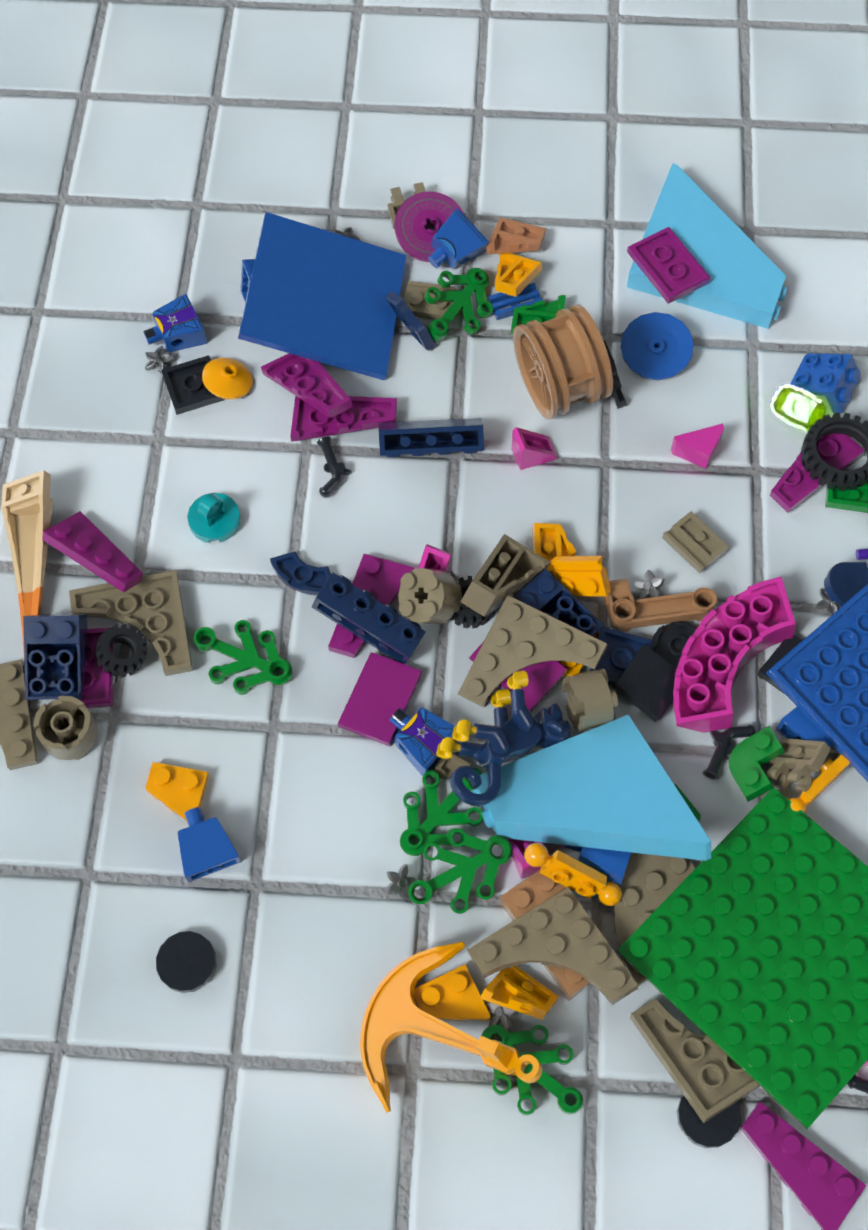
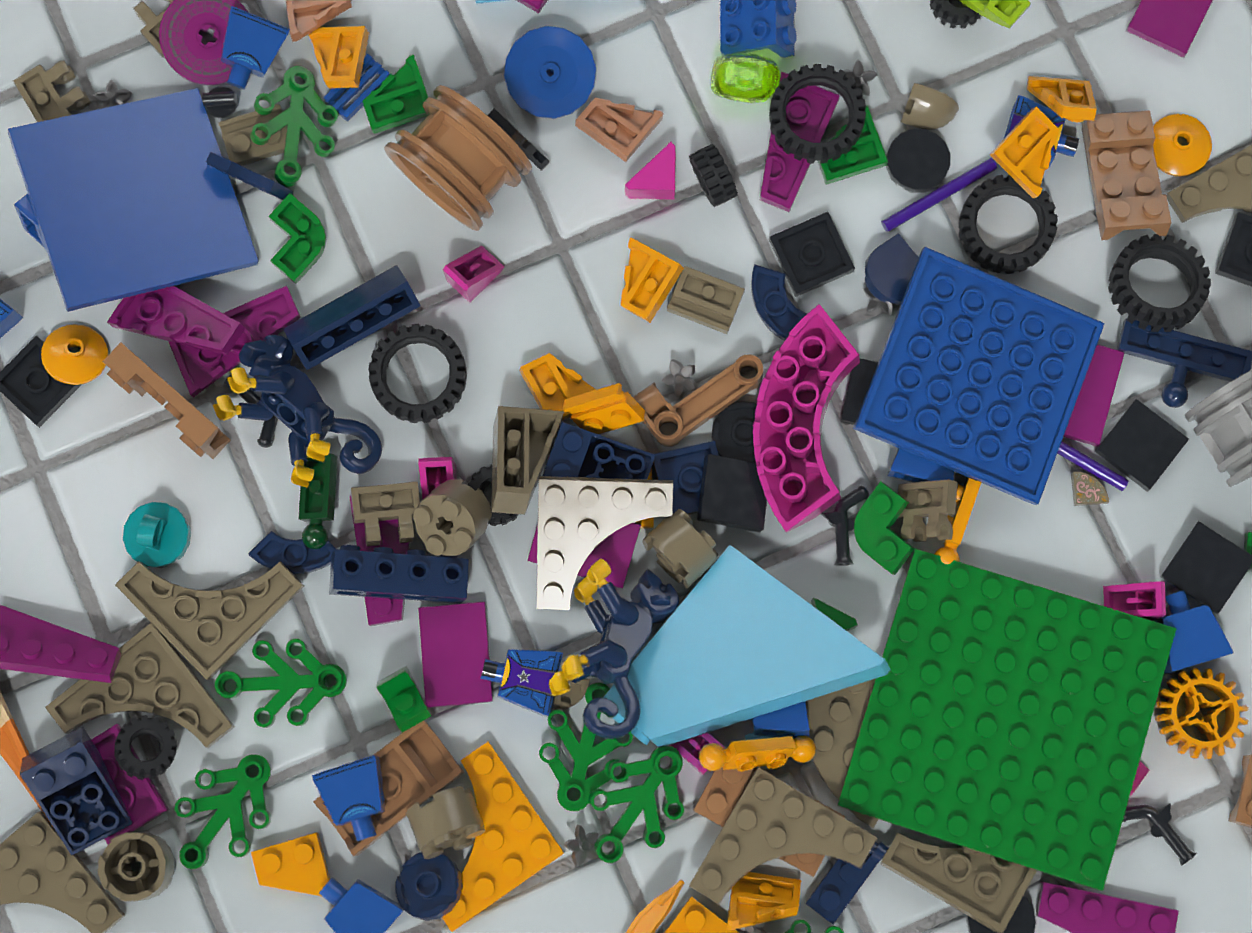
camera: 25 degrees left, 15 degrees up
(154, 723) = (228, 807): none -> green plant
(217, 591) = (209, 624): none -> dark tan plate
(250, 749) = (353, 794): none -> blue torso
(261, 406) = (135, 375): none -> medium nougat piece
(268, 852) = (428, 886): none -> dark blue tile
(279, 764) = (412, 771): none -> medium nougat piece
(302, 209) = (42, 96): none -> dark tan plate
(306, 807) = (446, 822): none -> dark tan brick
(324, 704) = (403, 699): none -> green slope
(340, 543) = (318, 501): none -> dark green plate
(344, 854) = (513, 842): none -> light orange plate
(360, 473) = (298, 405): none -> dark blue animal
(386, 566) = (385, 503): none -> dark tan plate
(416, 269) = (220, 102): none -> black plate
(425, 378) = (306, 239): none -> green plate
(457, 469) = (416, 335): none -> black tyre
(592, 1017) = (842, 884): none -> dark blue plate
(658, 509) = (647, 280): none -> light orange wing
(688, 402) = (617, 125): none -> nougat wing
(743, 459) = (713, 175): none -> black tyre
(745, 565) = (772, 301): none -> dark blue tile
(791, 548) = (811, 254): none -> black tile

